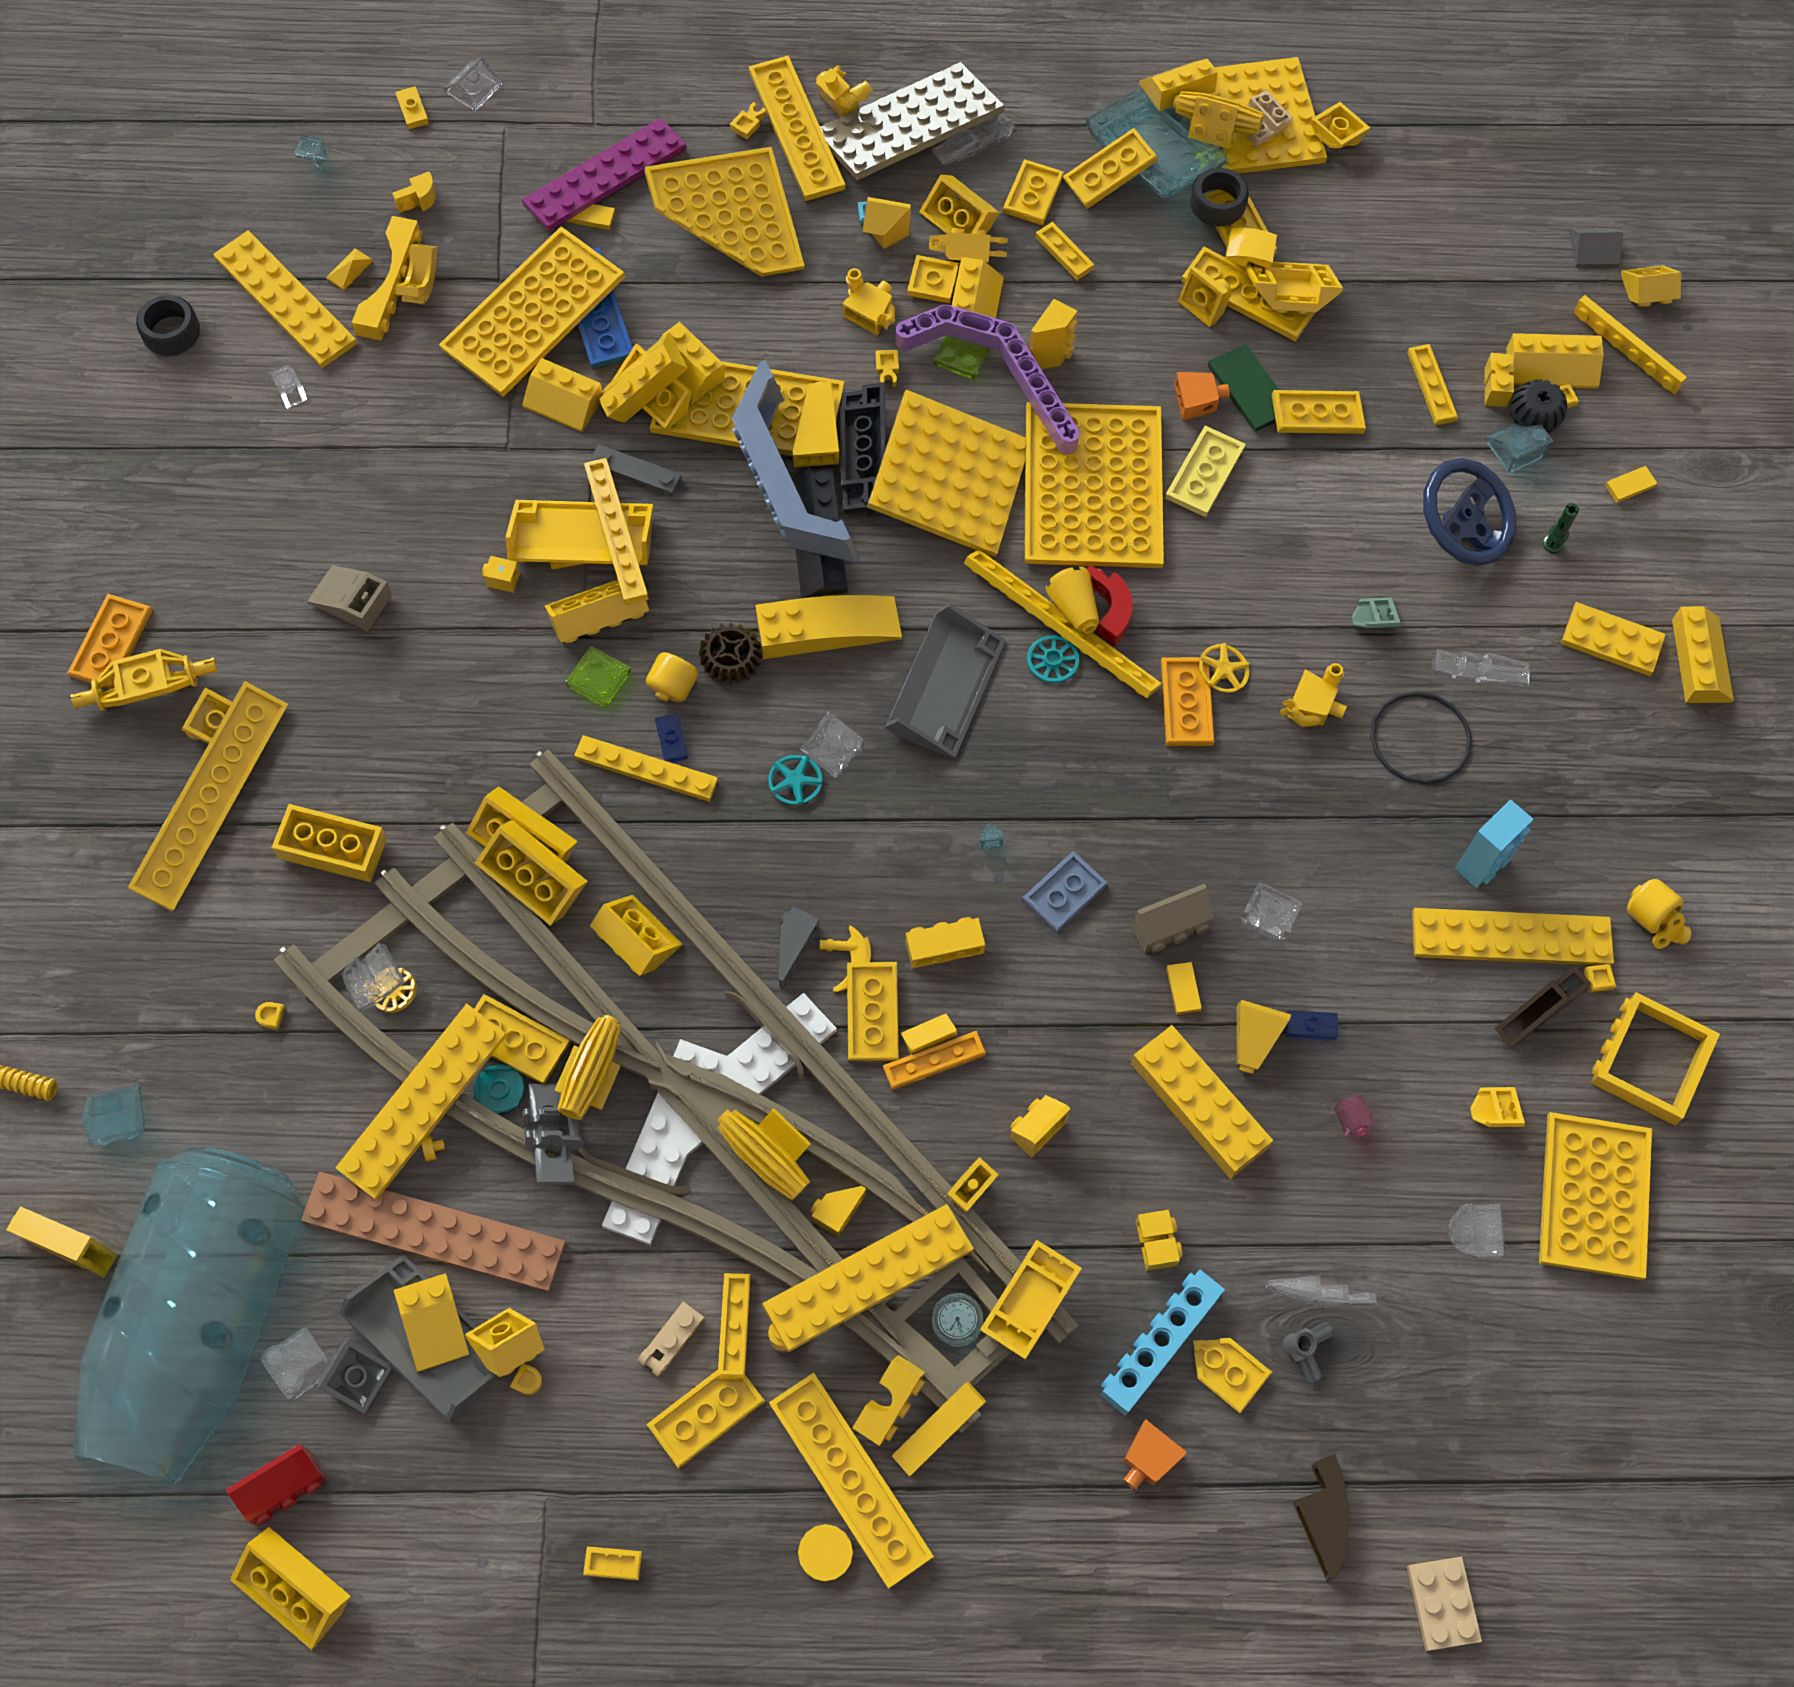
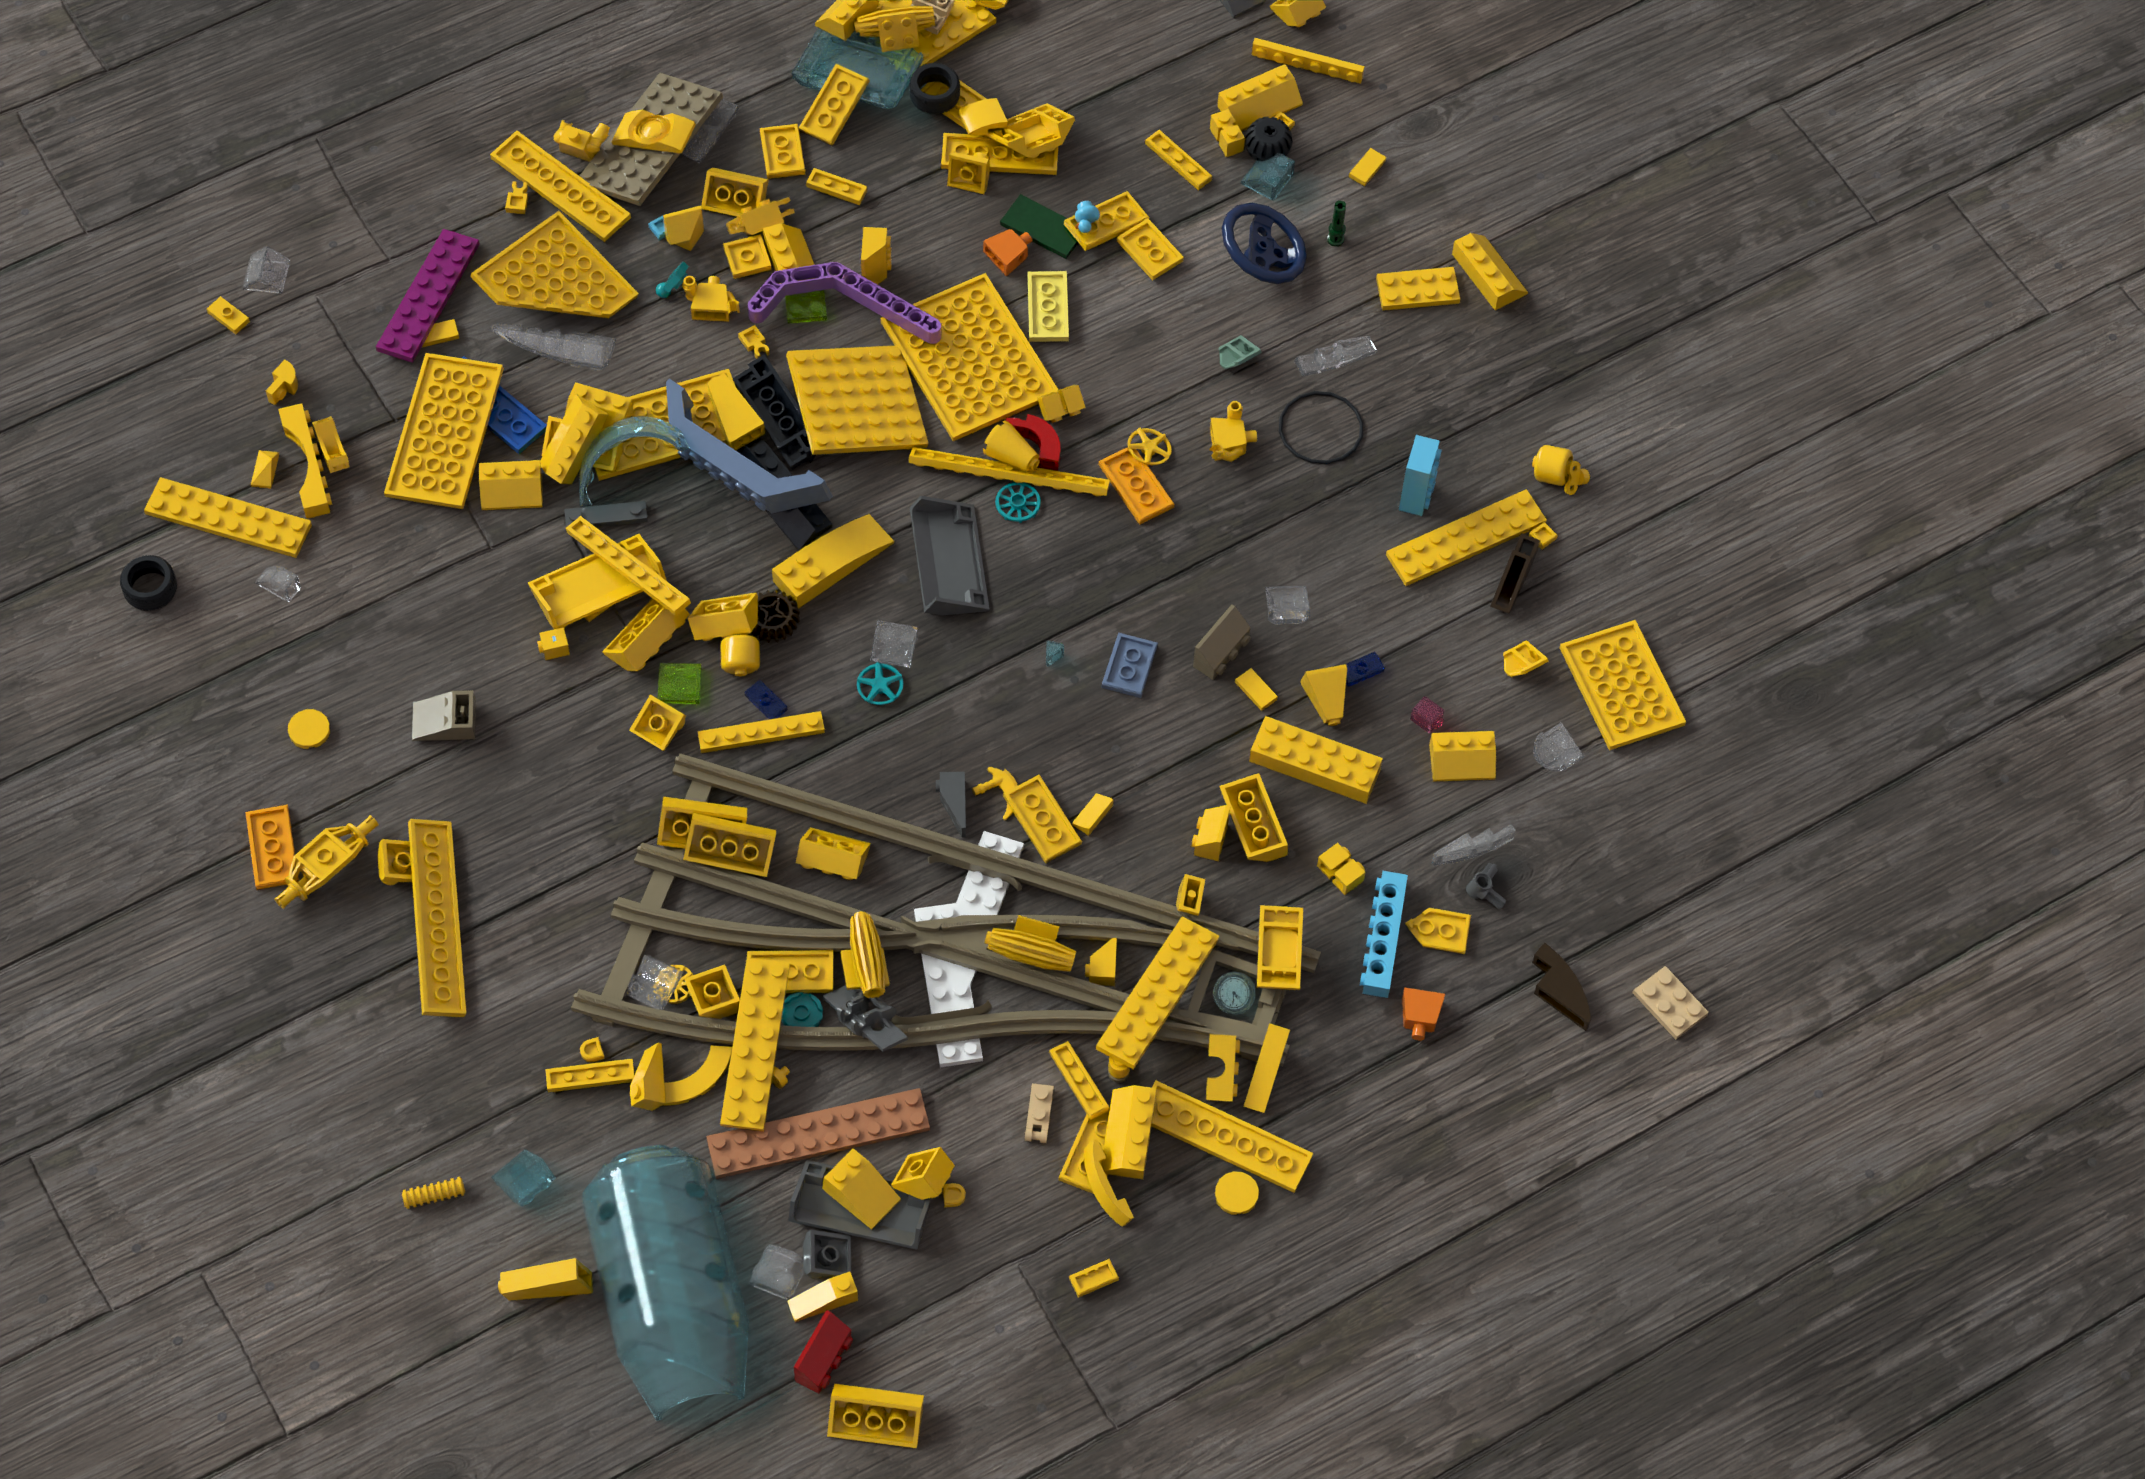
camera: 30 degrees left, 5 degrees down
(220, 541) = (309, 728): none -> yellow tile
(249, 1041) = (589, 1075): none -> yellow plate
(294, 1084) = (647, 1086): none -> yellow slope
(311, 149) = (171, 387): clear light blue panel -> none
(323, 1420) = (824, 1296): none -> yellow slope
(329, 843) = (557, 904): yellow brick -> none
(351, 1108) = (702, 1080): none -> yellow tile
(416, 1020) = (713, 993): none -> yellow slope
(549, 706) = (658, 722): none -> yellow slope
(679, 630) = (724, 617): none -> yellow slope
(680, 392) = (619, 432): none -> clear light blue windscreen
(684, 1500) = (1116, 1209): none -> yellow slope
(708, 291) = (574, 348): none -> clear wedge
(747, 1418) = (1129, 1131): none -> yellow slope
(834, 272) = (664, 289): none -> teal plate
(914, 114) = (654, 131): none -> yellow slope
(934, 1060) = (1107, 830): light orange tile -> none
(945, 942) = (1065, 743): yellow brick -> none
(1092, 1134) = (1255, 819): none -> yellow slope
(1169, 578) = (1062, 402): none -> yellow piece
(1297, 395) = (1085, 216): none -> medium azure animal
(1347, 462) = (1150, 249): none -> yellow plate
(1367, 1183) = (1463, 756): none -> yellow slope
(1670, 1113) = (1611, 603): yellow window -> none

